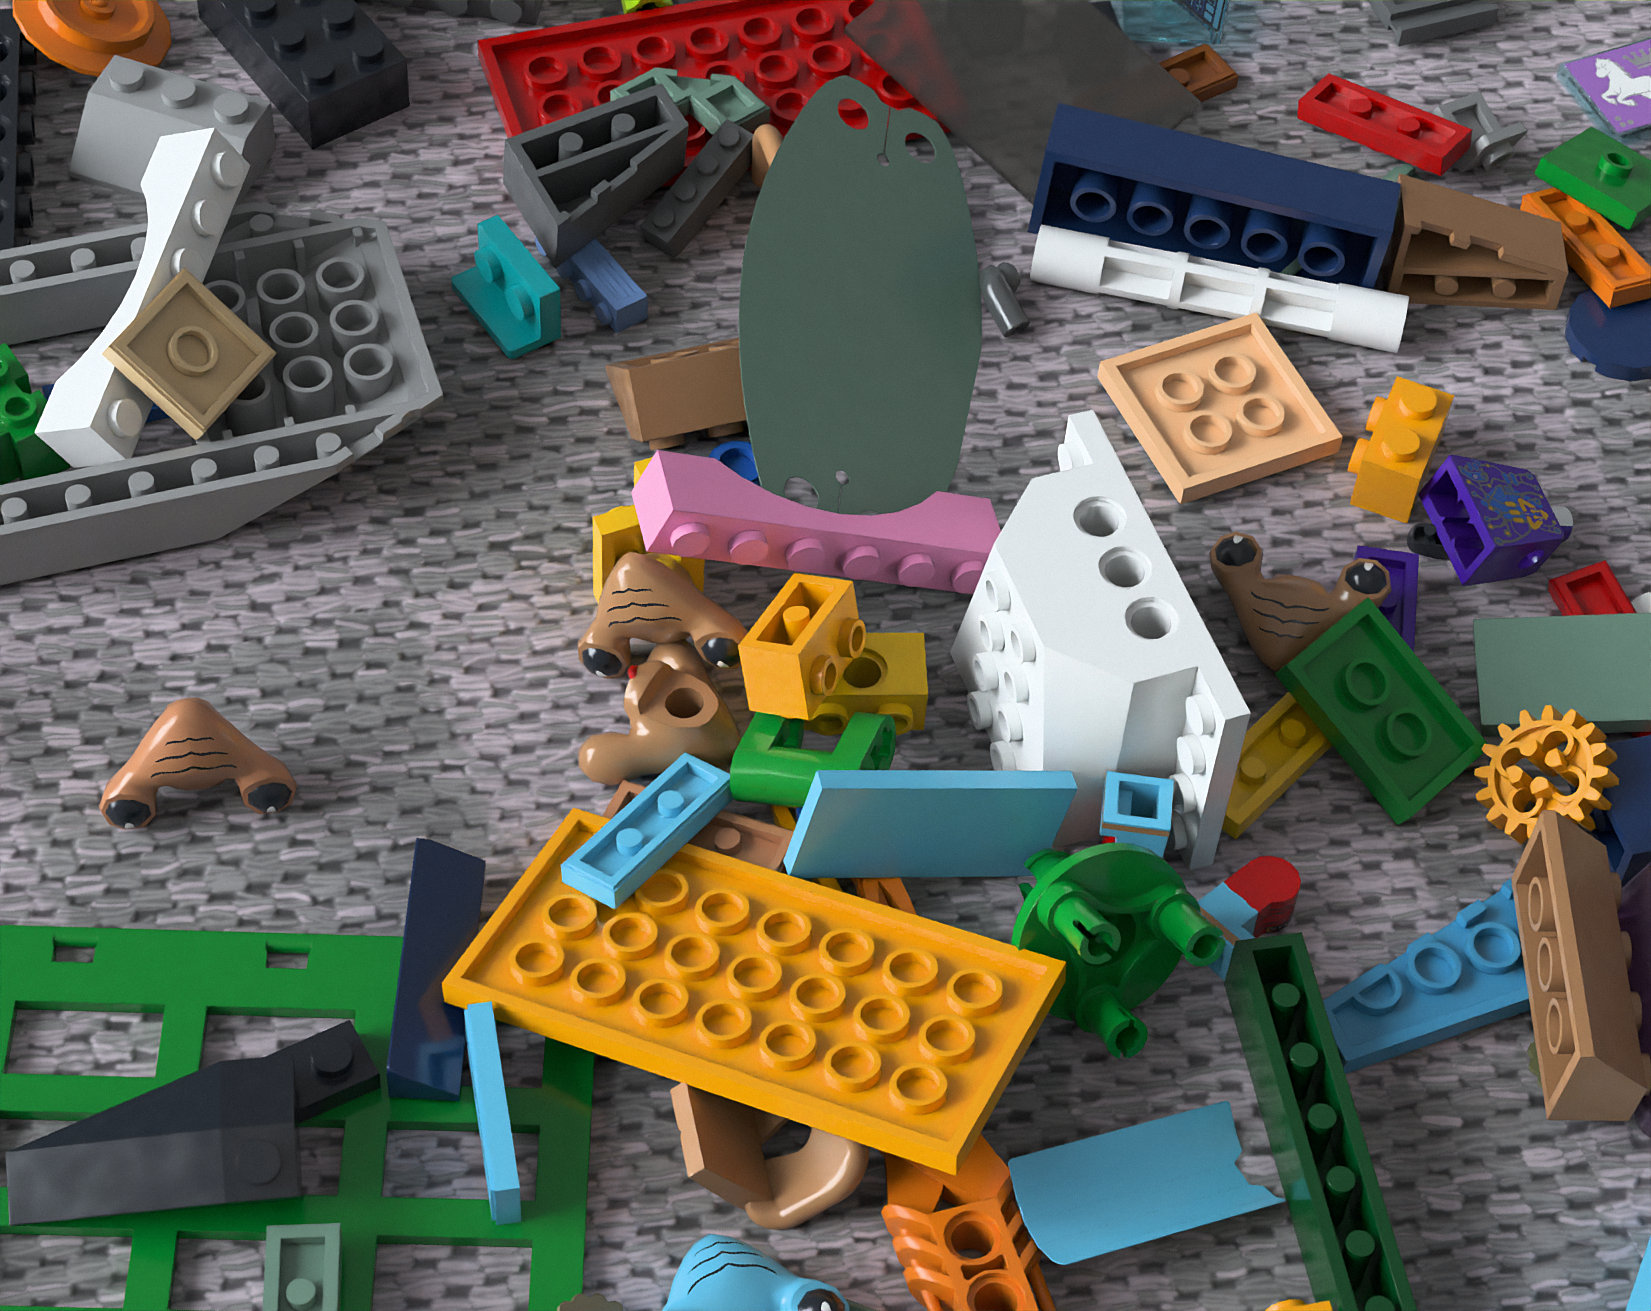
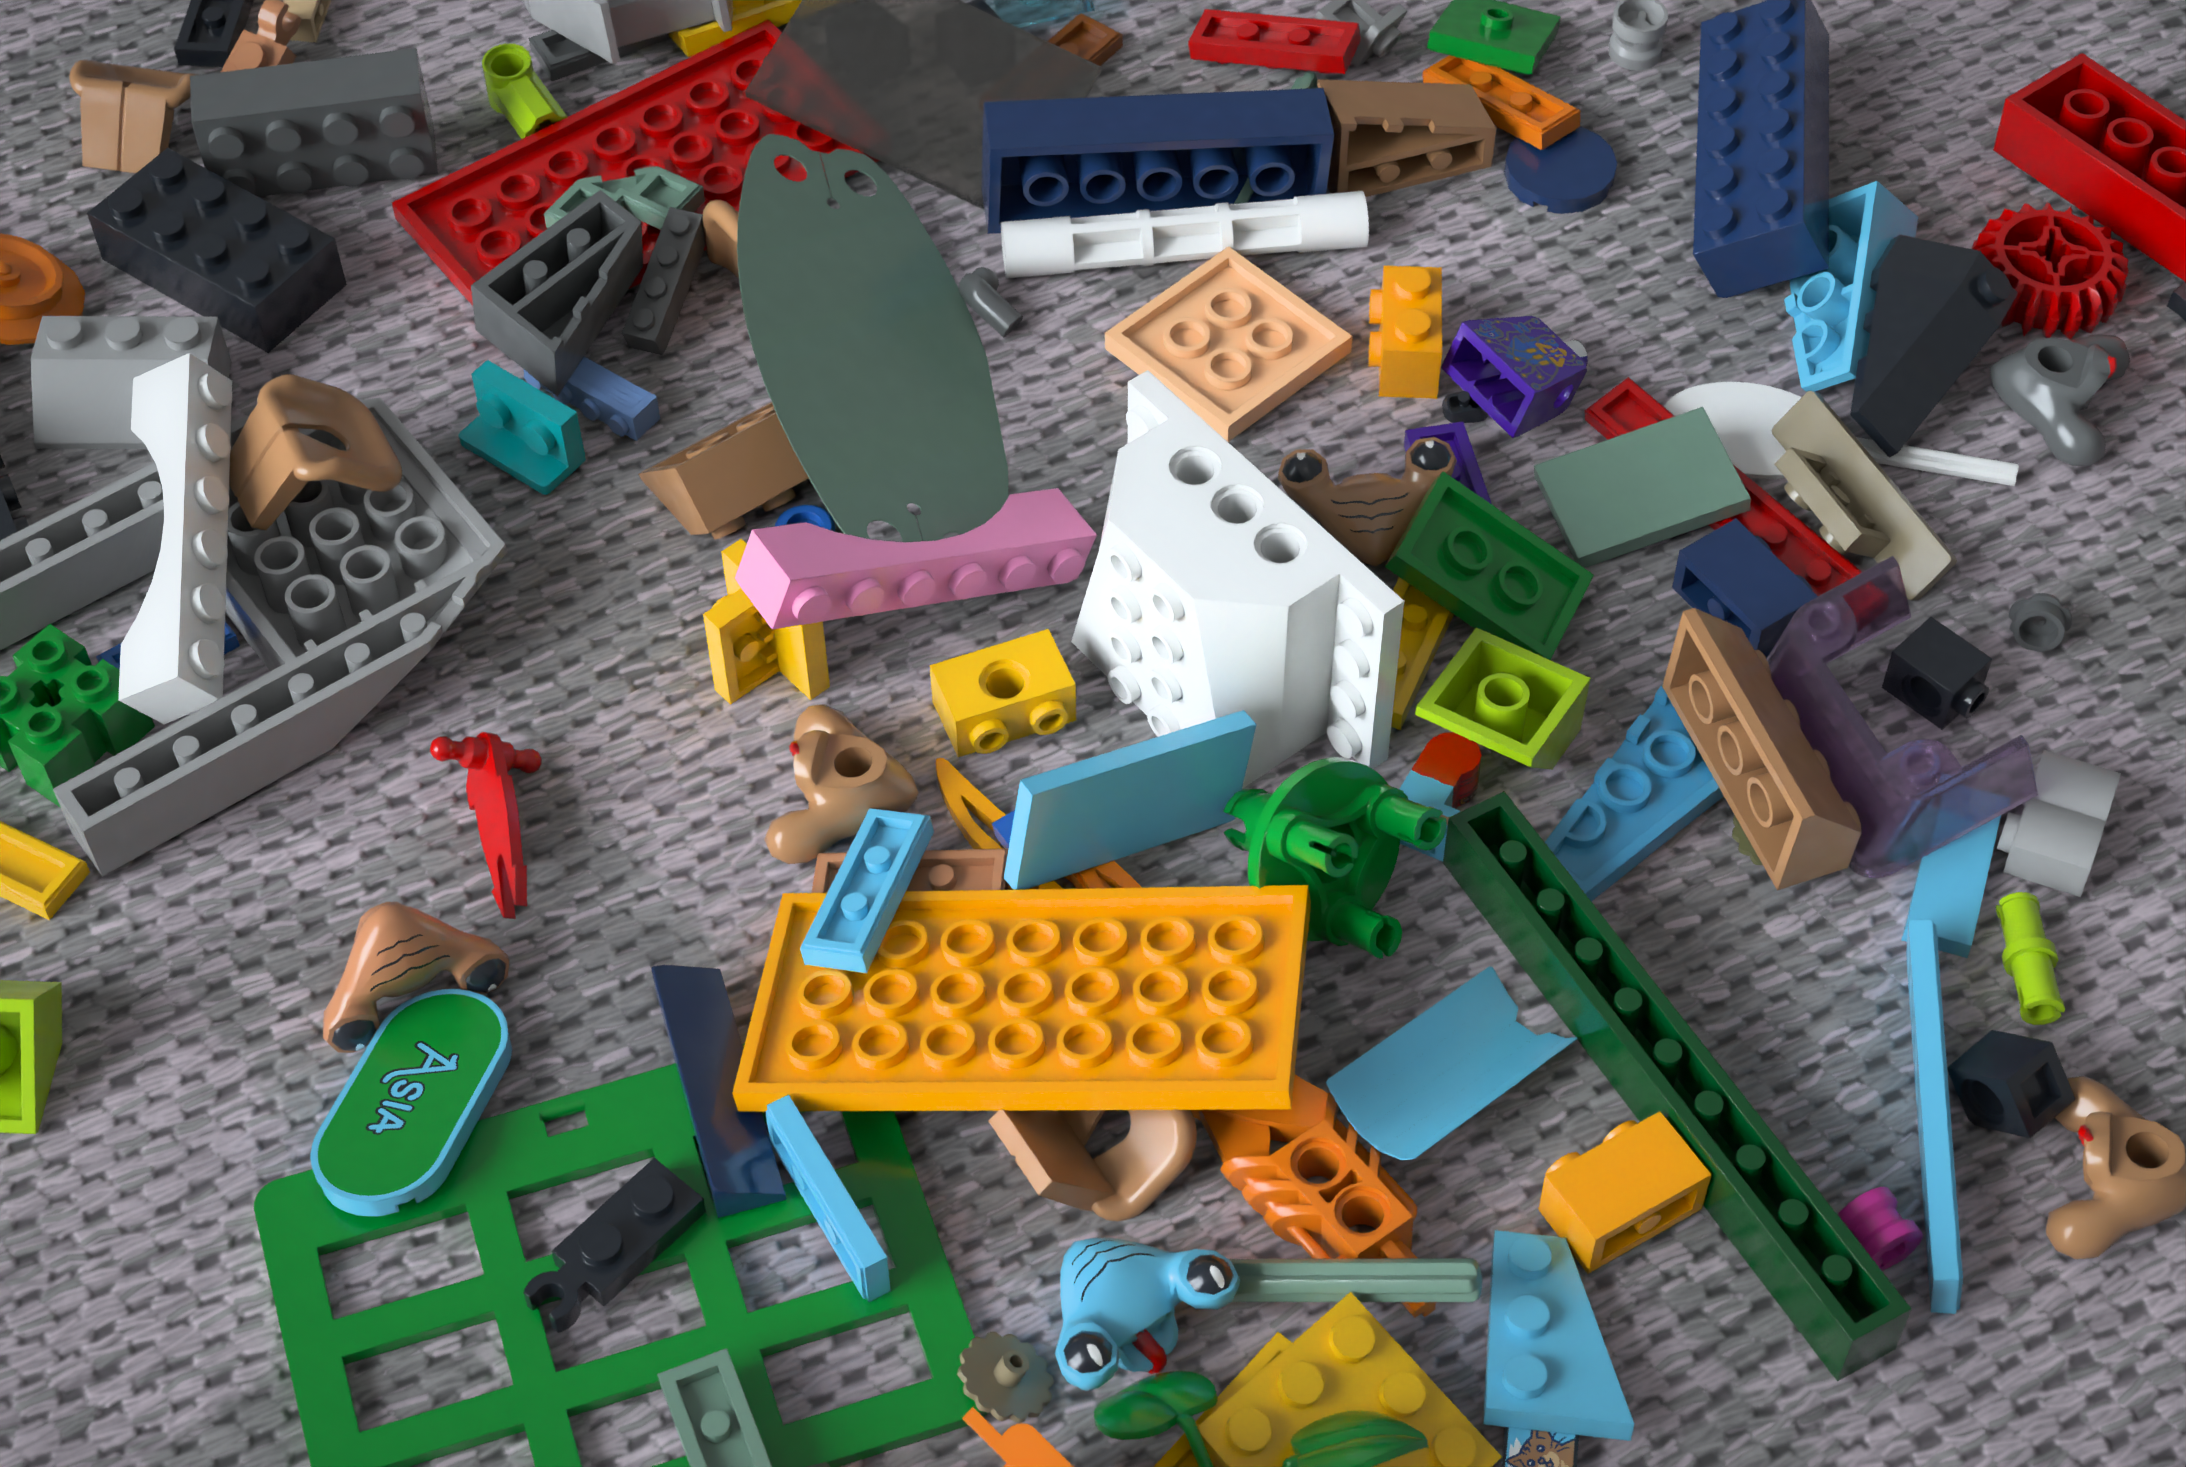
camera: 15 degrees left, 0 degrees up
(154, 893) = (411, 1102): none -> green tile
(185, 1146) = (547, 1325): black wedge -> none
(189, 353) = (247, 577): tan tile -> none
(260, 251) = (277, 461): none -> medium nougat piece
(342, 631) = (496, 808): none -> red piece
(658, 603) = (791, 677): medium nougat head -> none
(778, 772) = (971, 800): green connector -> none
(801, 646) = (949, 673): light orange brick -> none
(1136, 810) = (1312, 729): medium azure leg -> none
(1345, 846) = (1508, 700): none -> lime slope
(1580, 764) = (1629, 605): light orange gear -> none

